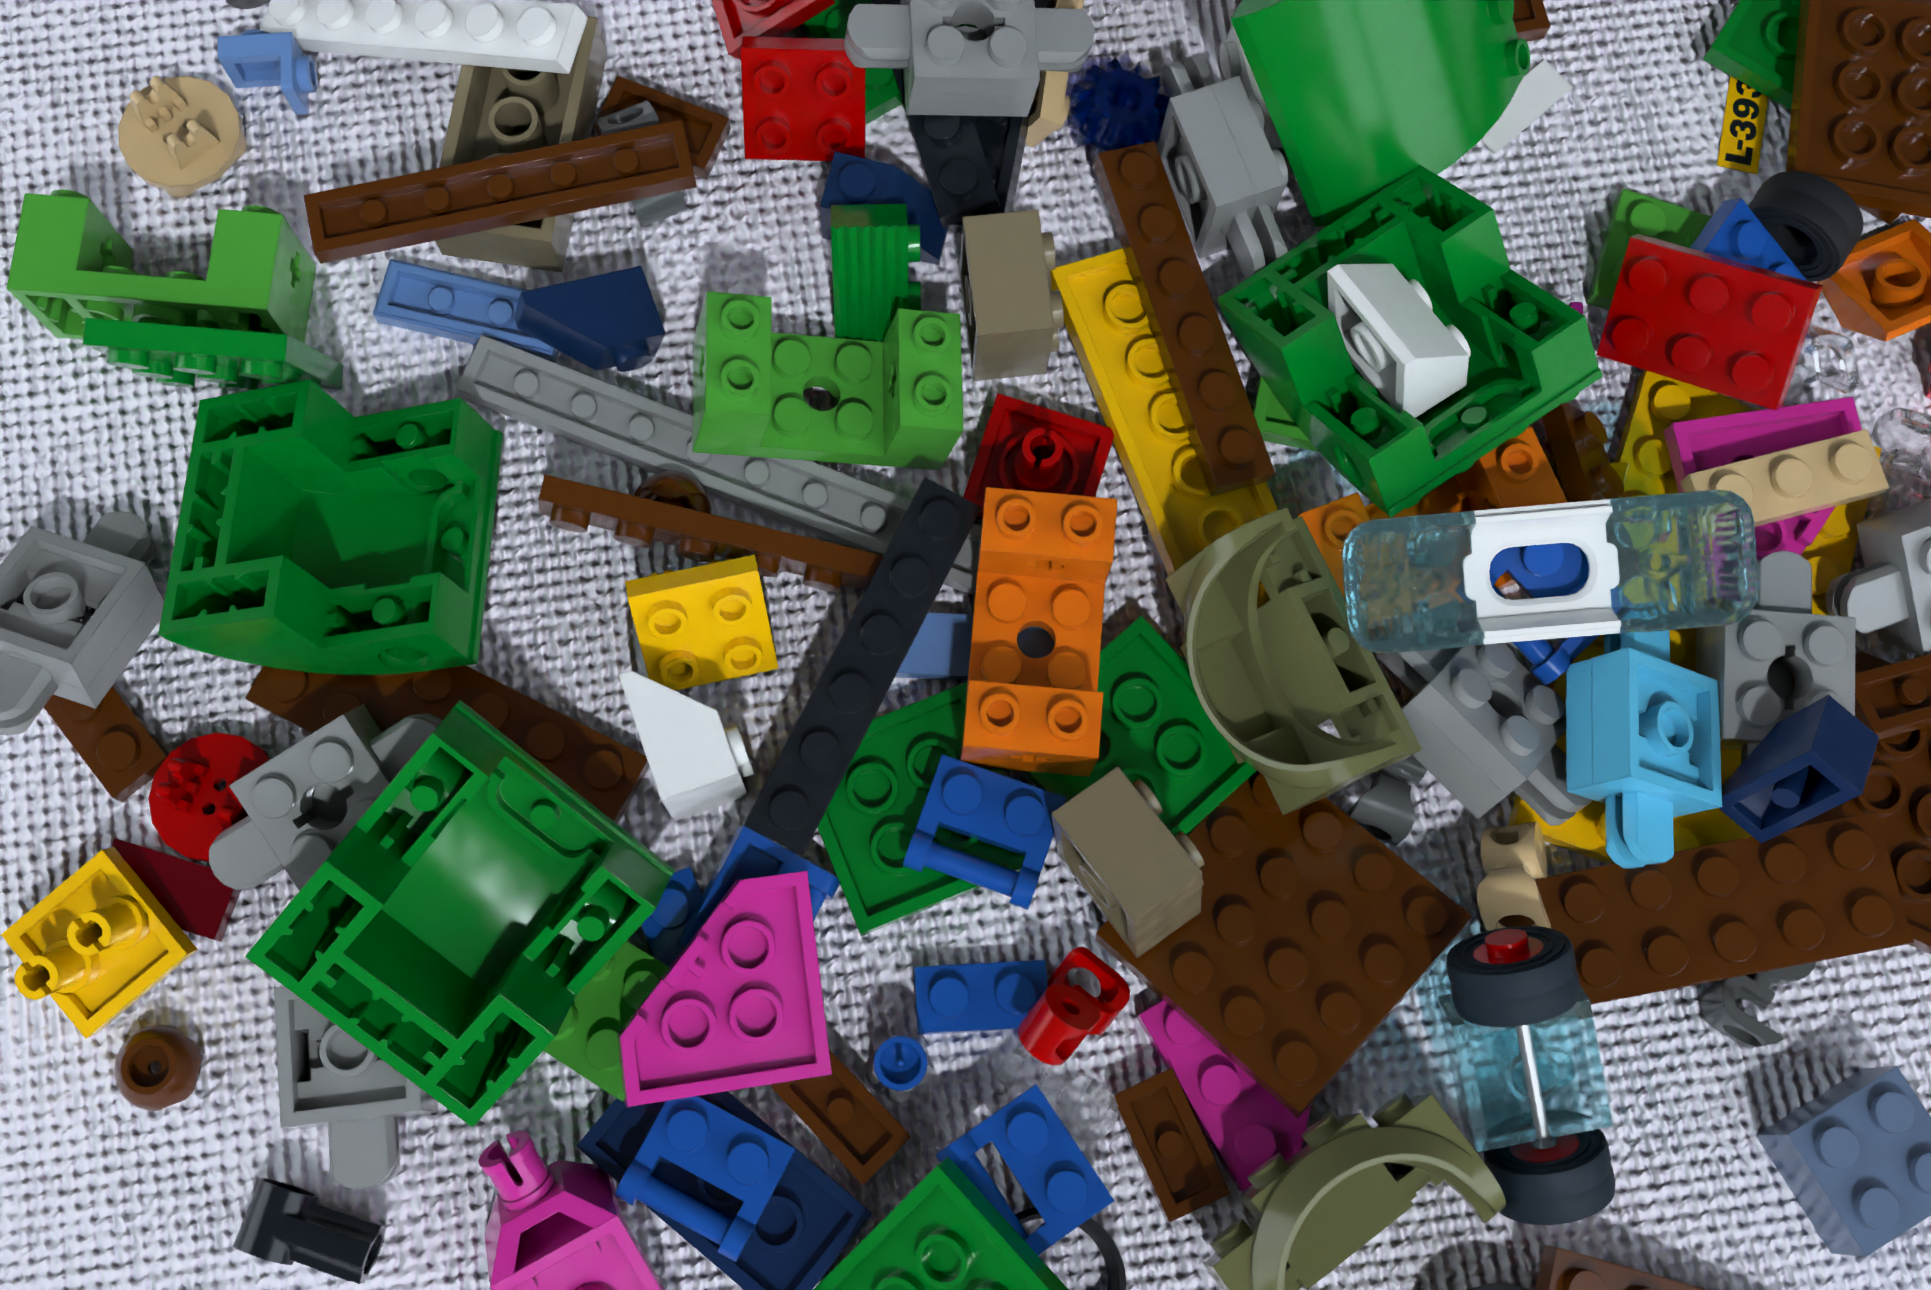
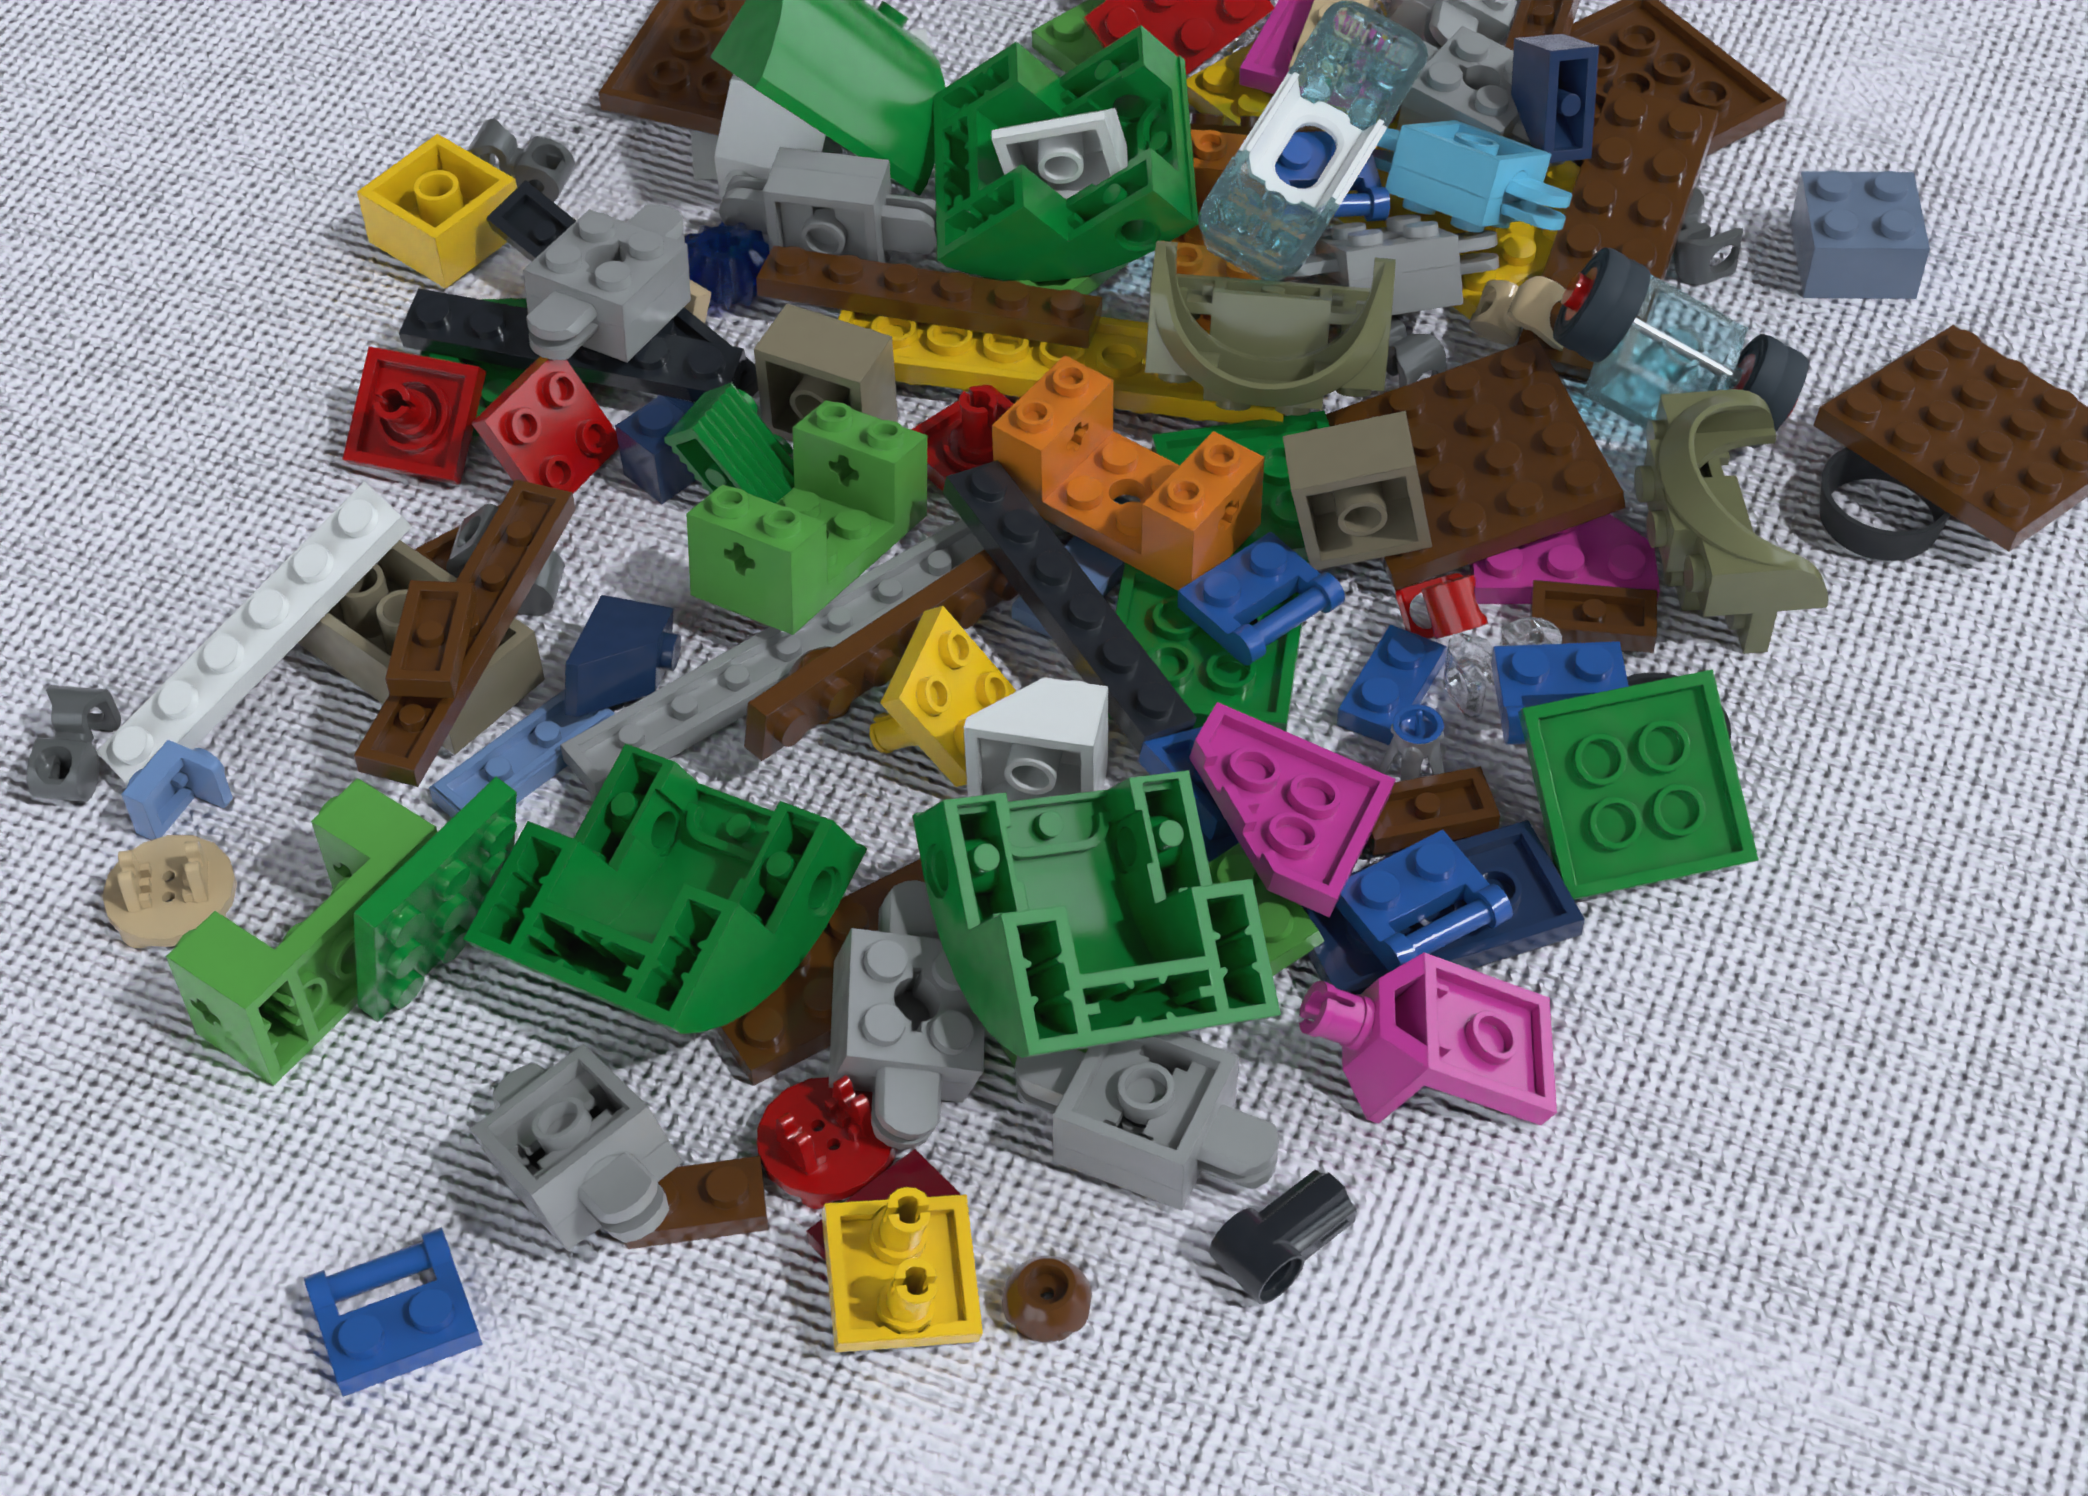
camera: 50 degrees left, 25 degrees down
(440, 176) = (431, 639): none -> reddish brown plate

